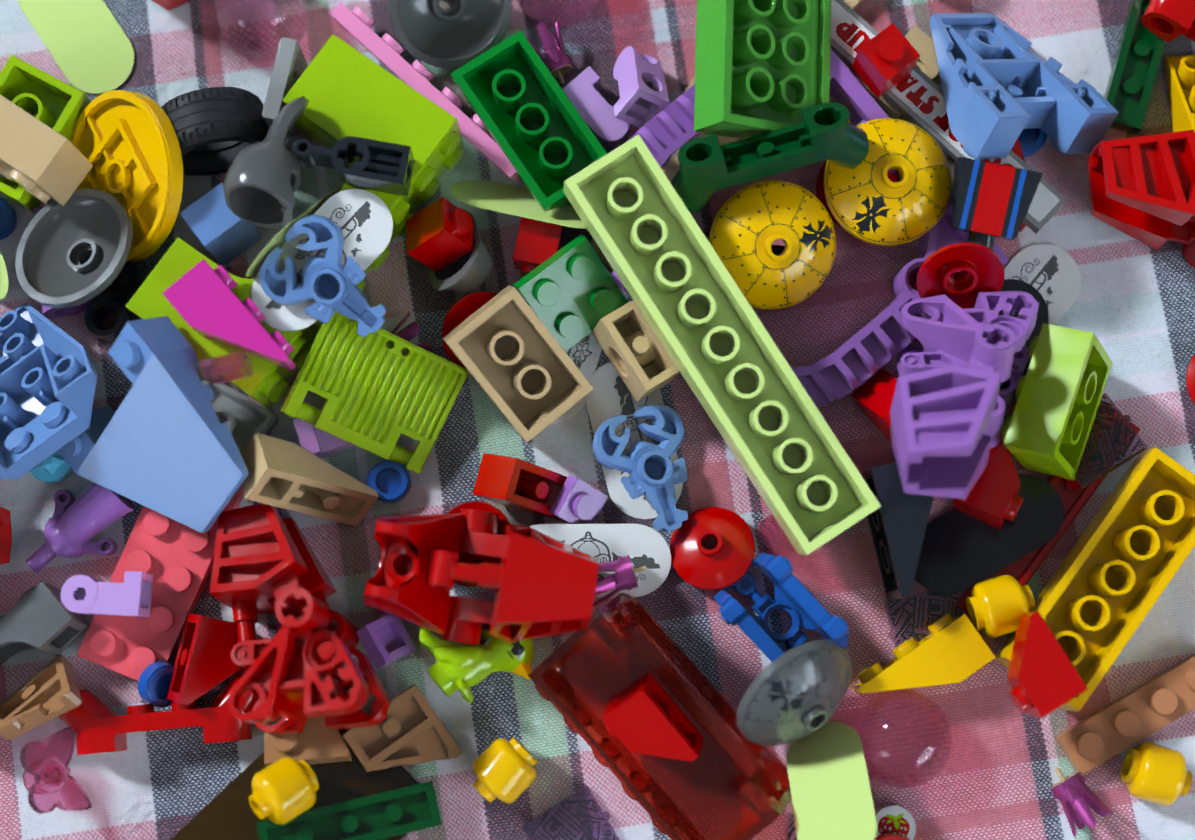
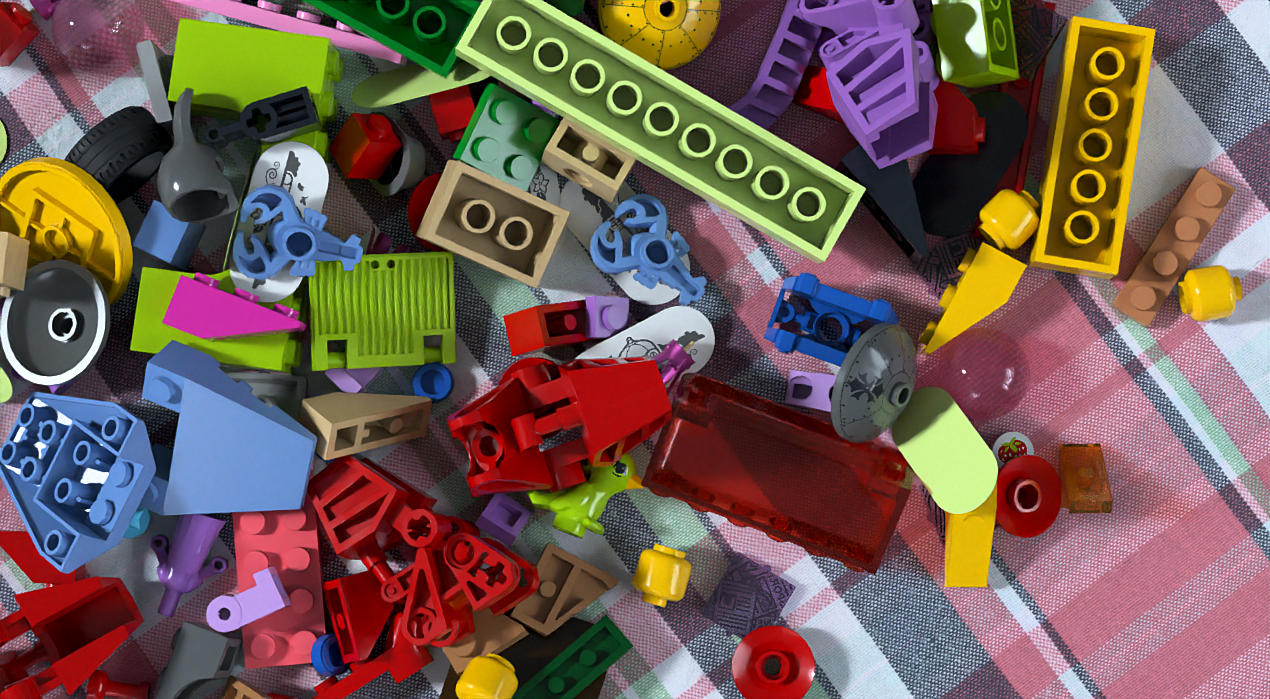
camera: 25 degrees left, 5 degrees up
(113, 301) = (118, 349): black beam -> none
(226, 368) = (250, 358): clear pink tile -> none
(652, 722) = (765, 469): red slope -> none
(715, 567) = (756, 307): red dish -> none
(732, 669) = (810, 390): none -> lavender leg
(774, 537) = (789, 259): clear pink tile -> none
(1040, 669) = (1067, 257): red slope -> none
(1074, 798) = (1148, 347): flat silver piece -> none

